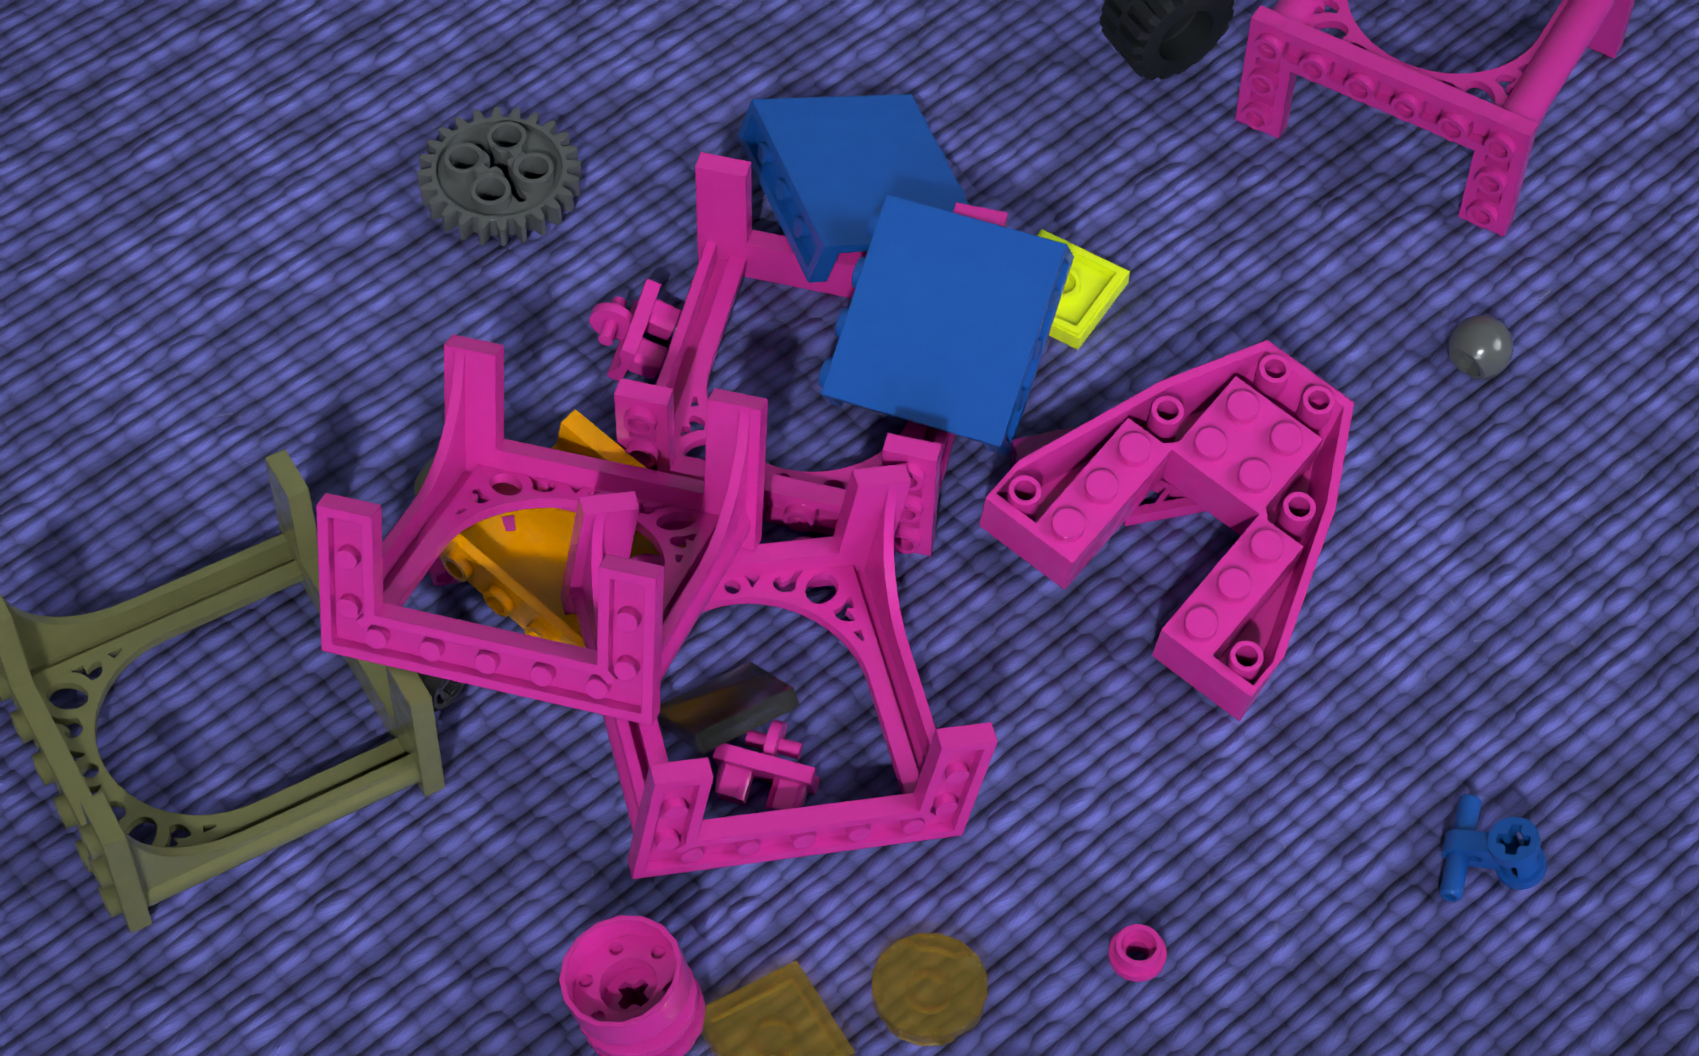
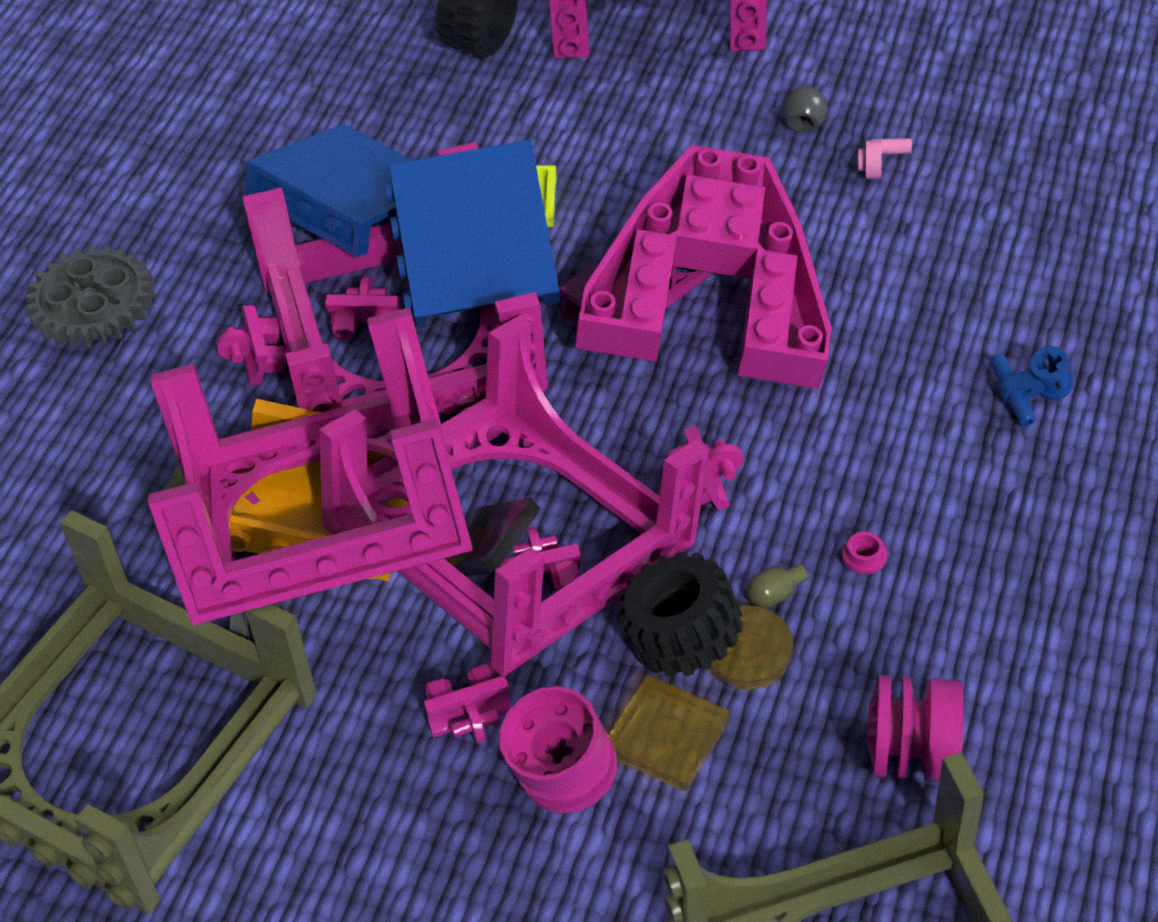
camera: 25 degrees left, 5 degrees down
(582, 893) = (469, 707): none -> dark pink hips
(785, 346) = (357, 306): none -> dark pink hips
(876, 944) = (680, 614): none -> black tyre
(1008, 934) = (774, 585): none -> olive cylinder
(1036, 753) = (722, 460): none -> dark pink hips
(1515, 455) = (870, 157): none -> bright pink plate

